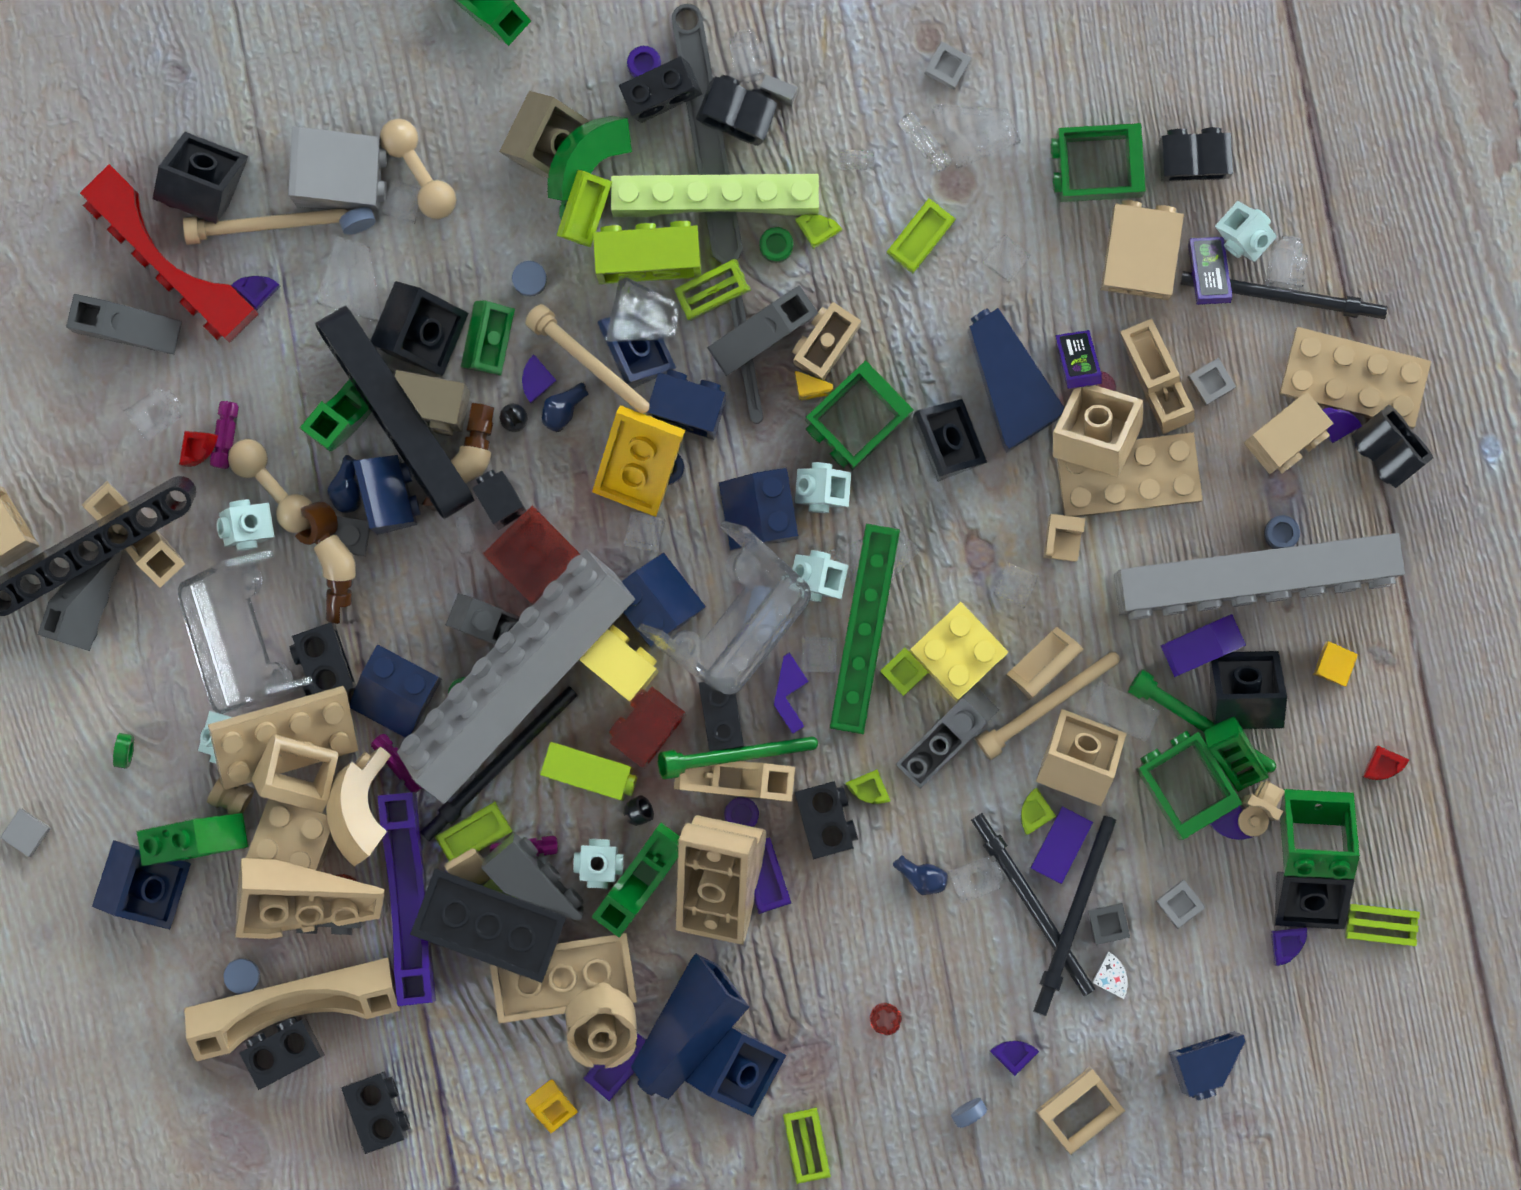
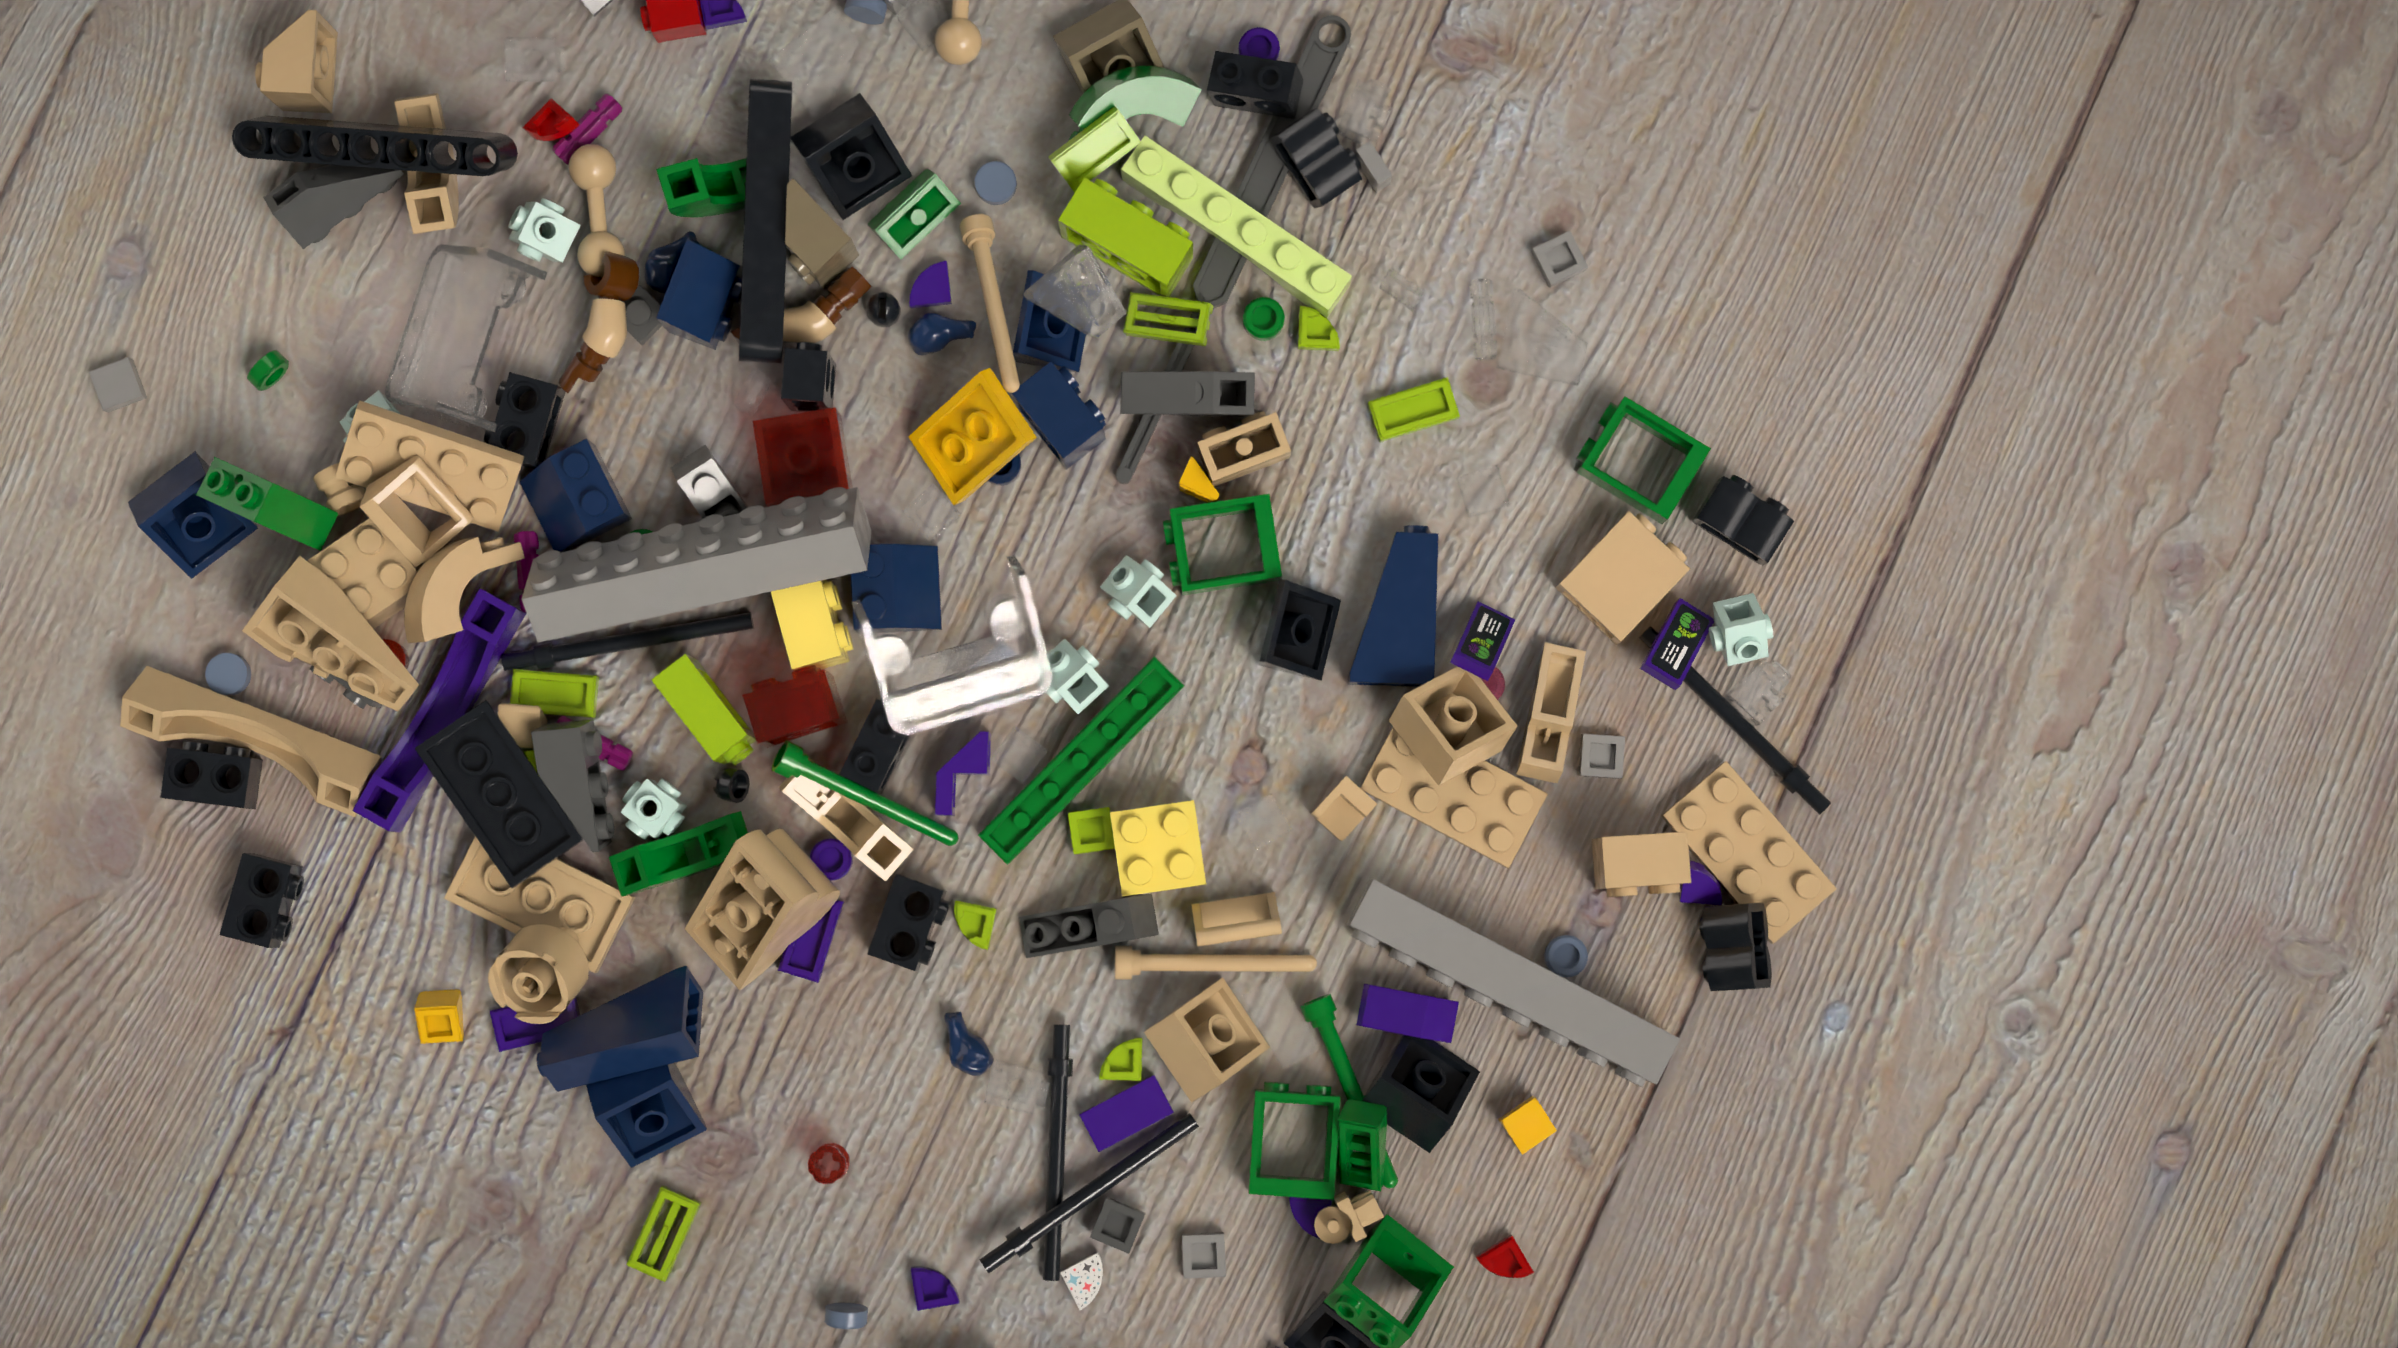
camera: 30 degrees right, 0 degrees up
(761, 504) = (1064, 568): dark blue slope -> none

